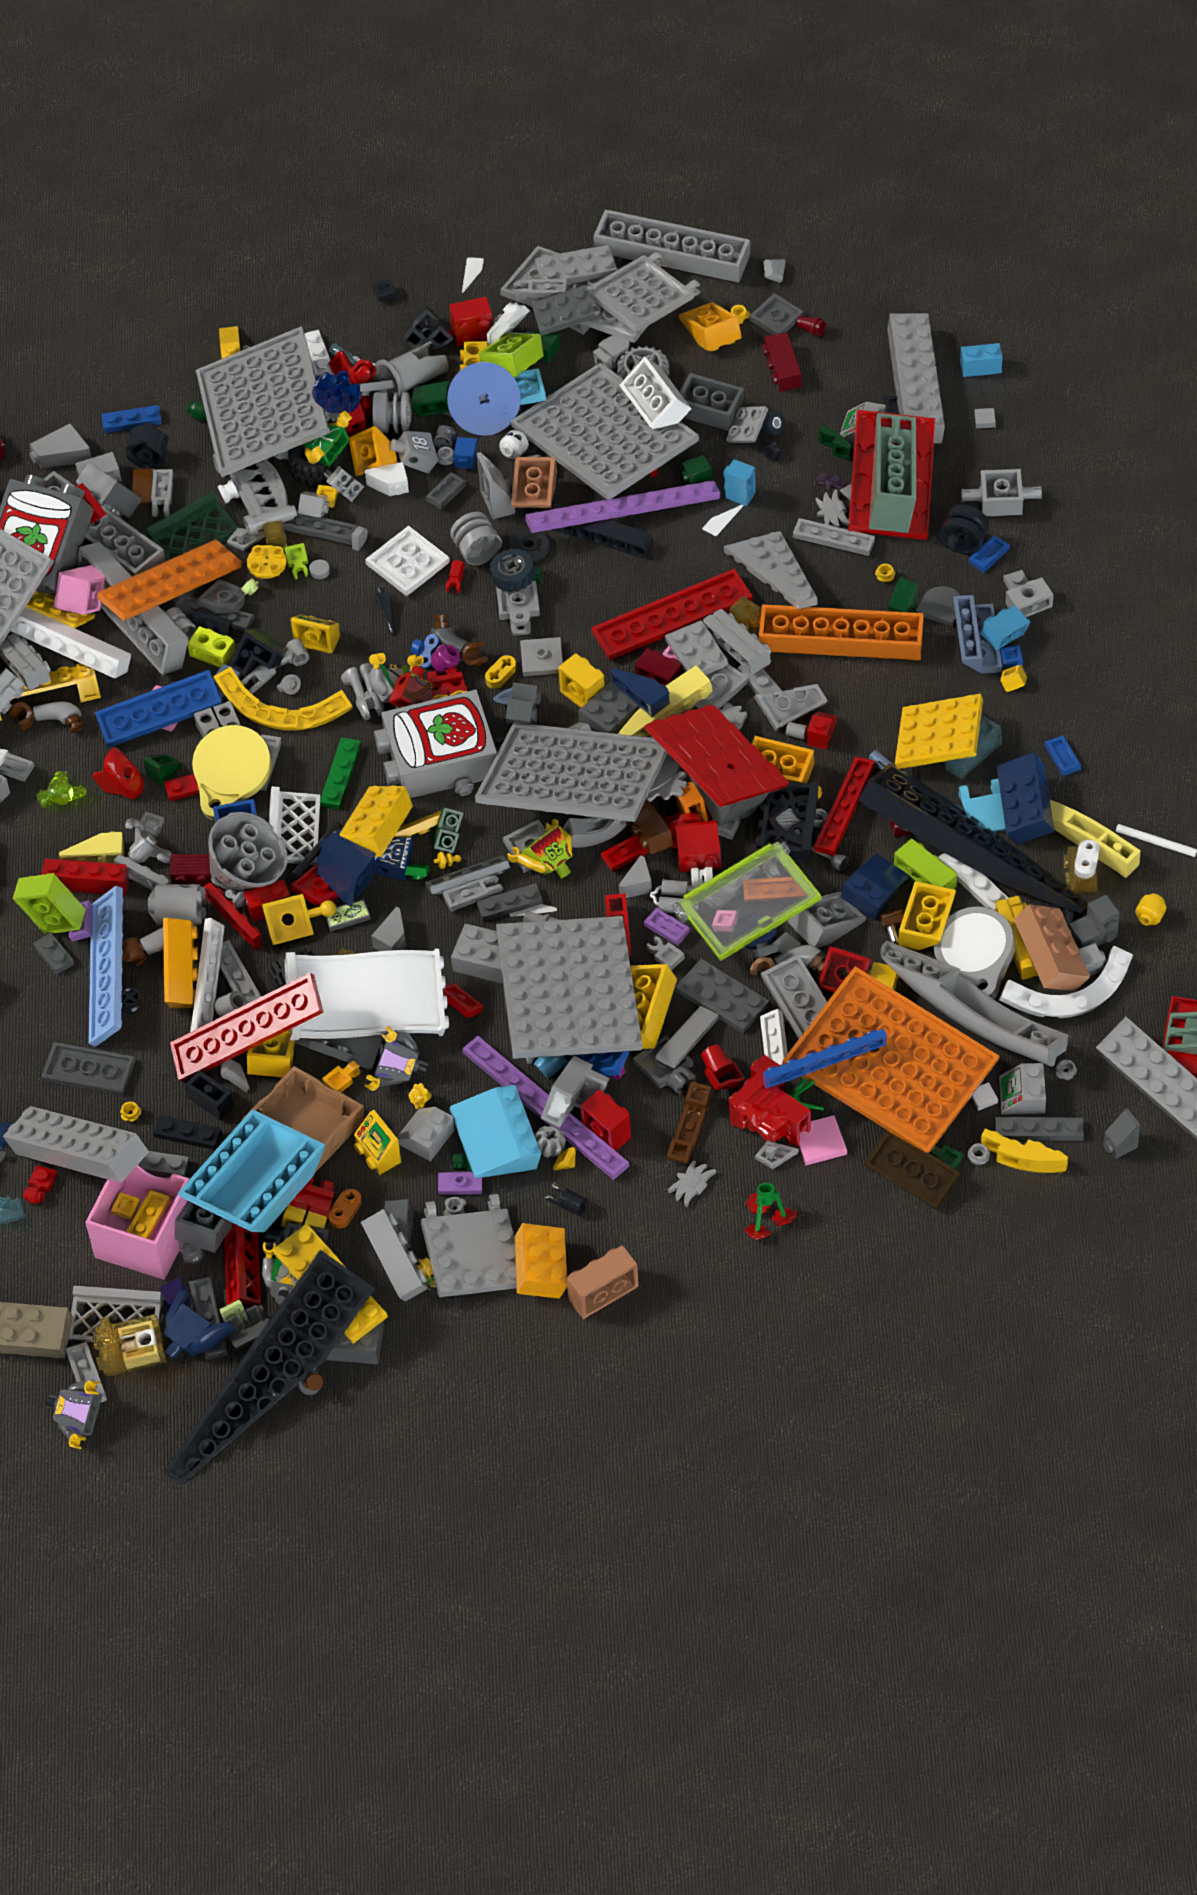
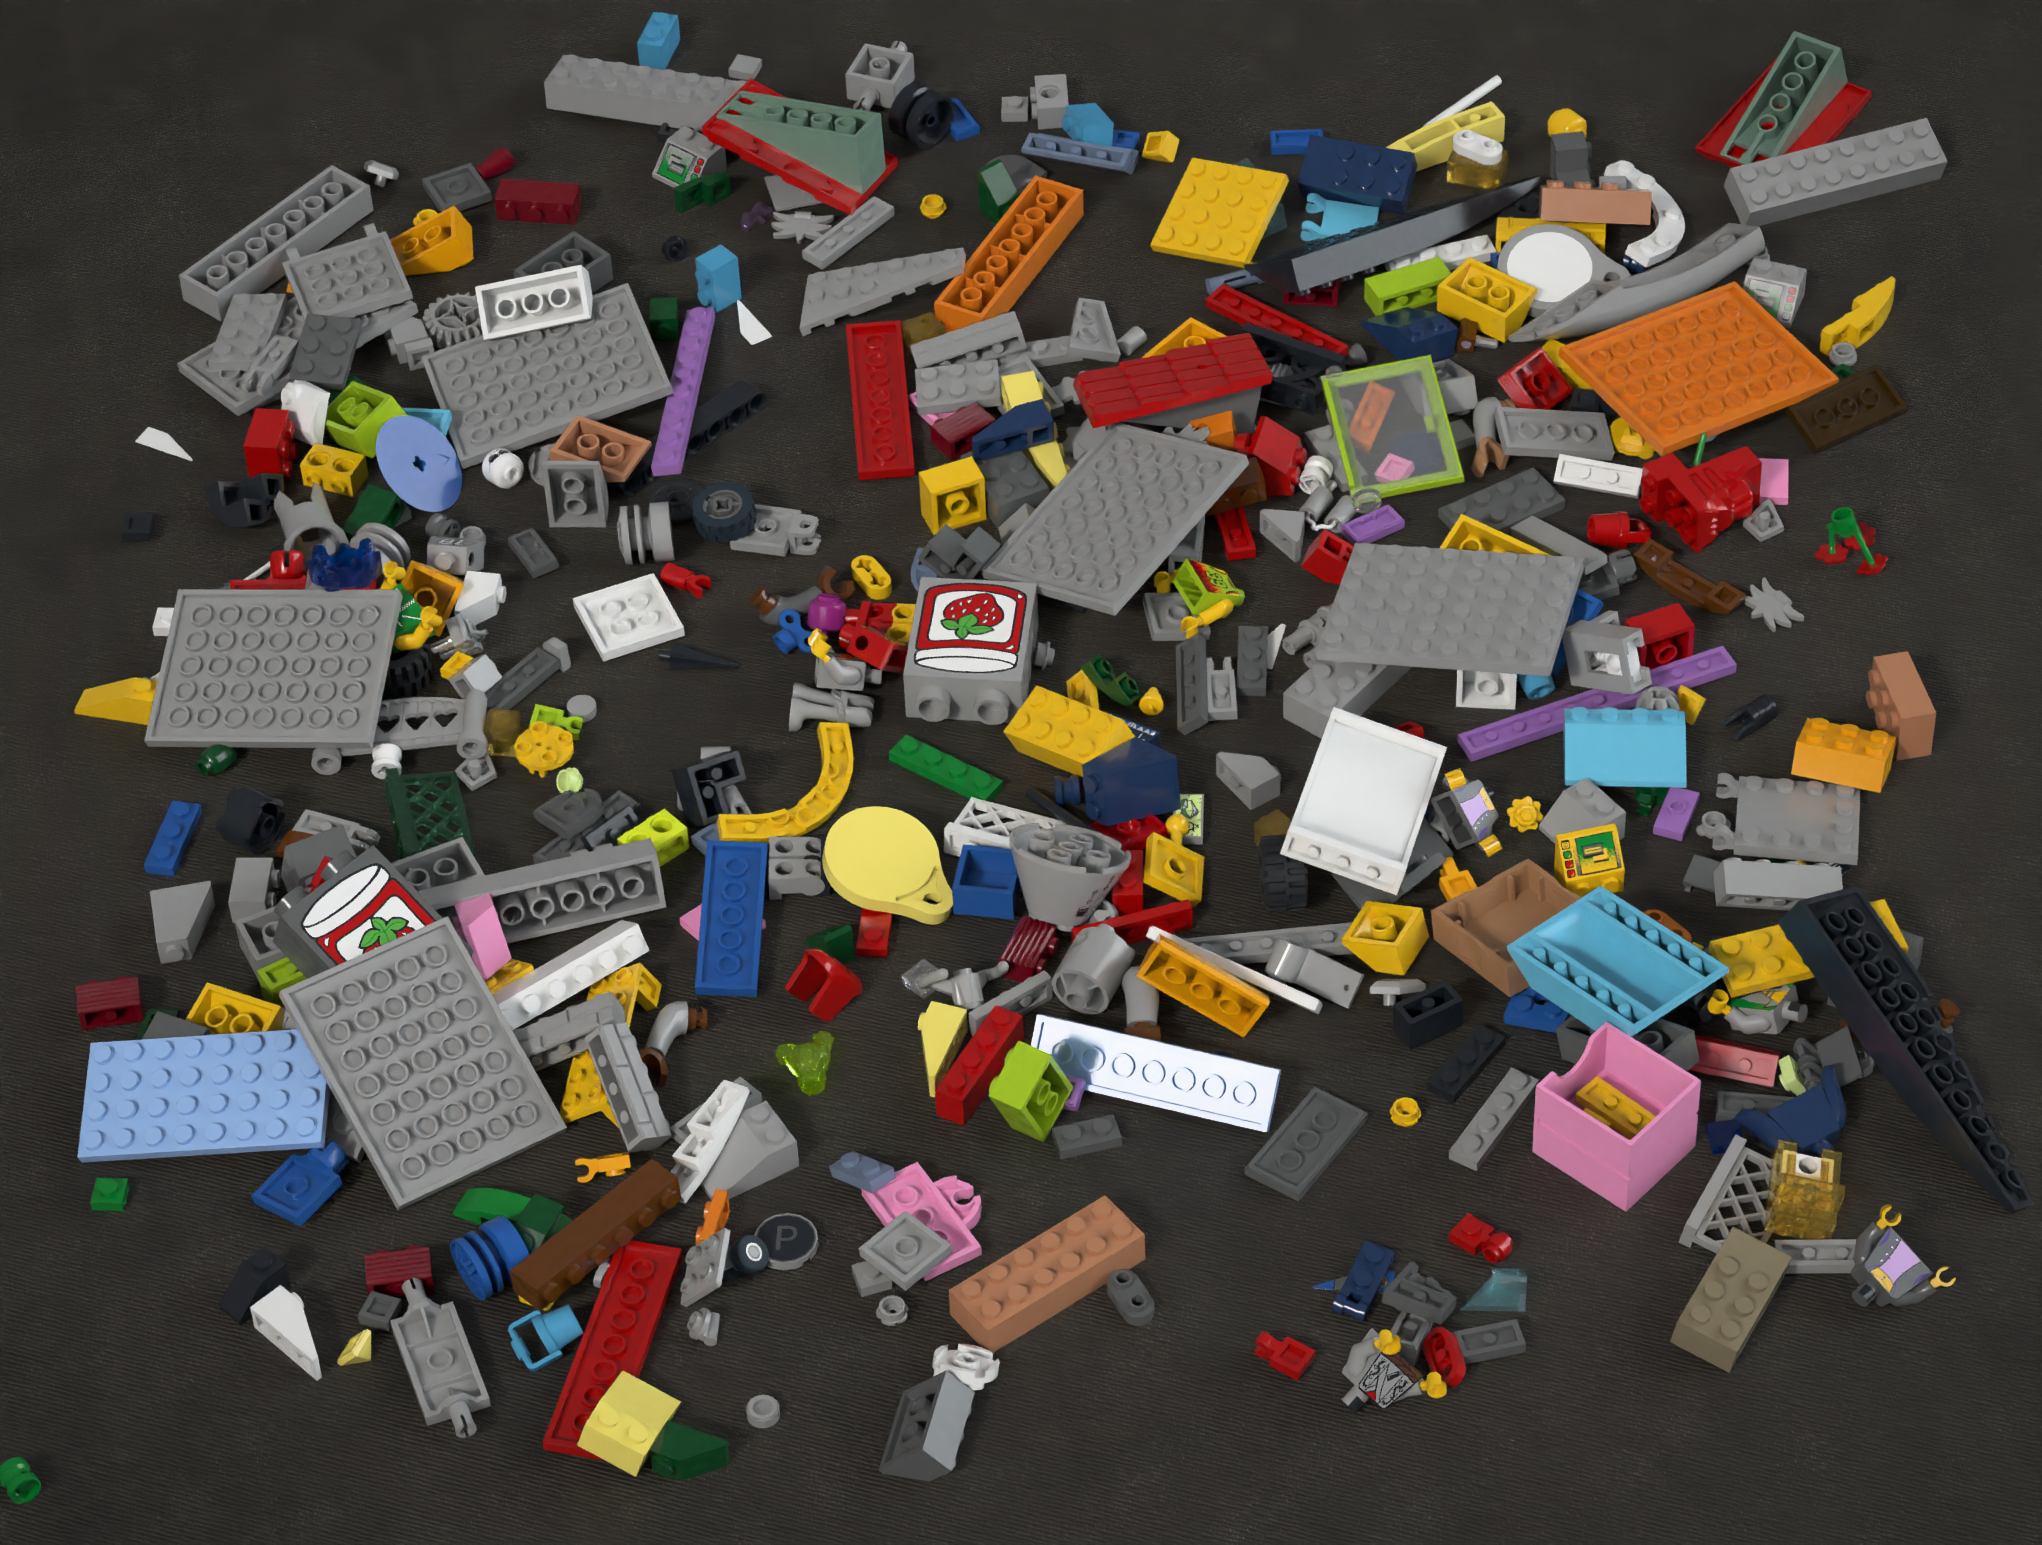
camera: 70 degrees left, 10 degrees down
(76, 1144) = (1477, 1141): light grey brick -> none
(169, 580) = (526, 839): orange plate -> none
(247, 1027) = (1363, 926): plate -> none
(290, 684) = (764, 783): light grey plate -> none
(316, 632) = (701, 726): yellow slope -> none
(417, 871) = (1162, 724): green plate -> none
(465, 453) = (485, 514): blue brick -> none
(541, 656) = (870, 534): light grey plate -> none
(666, 954) = (1416, 535): light grey plate -> none
(751, 420) = (629, 250): light grey plate -> none
(763, 949) = (1470, 438): dark grey plate -> none
(821, 730) = (1147, 313): red slope -> none
(832, 1055) = (1685, 410): blue plate -> none
(1040, 1128) = (1827, 299): dark grey plate -> none
(1122, 1135) = (1878, 227): dark grey slope -> none

